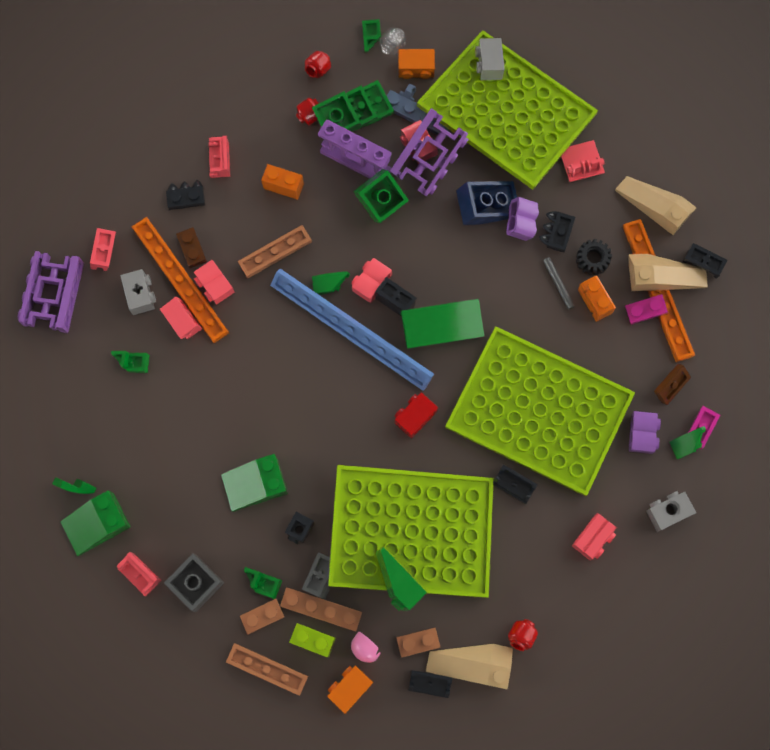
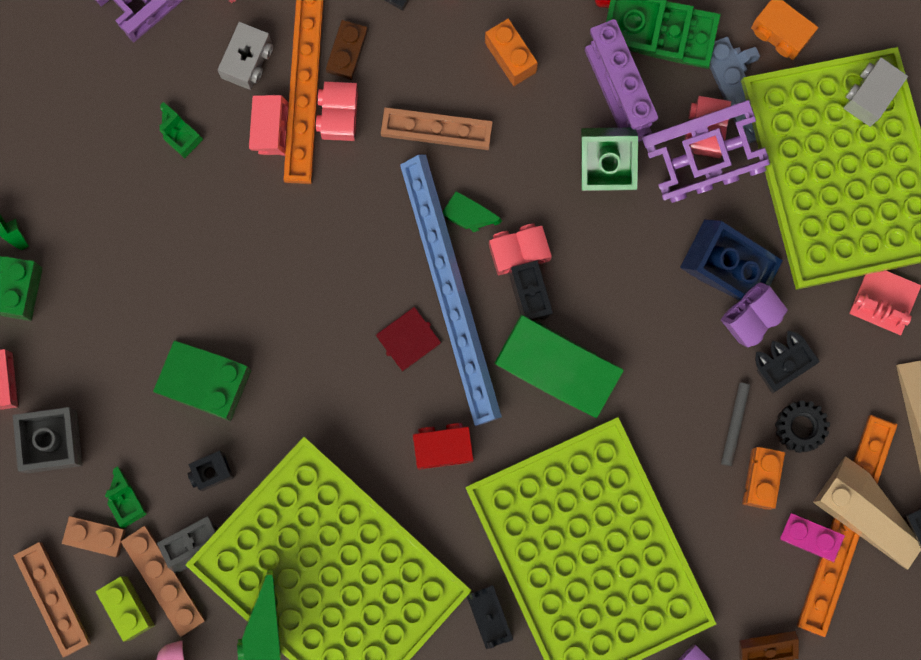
camera: 35 degrees right, 5 degrees up
(349, 374) = (408, 339): none -> dark red piece

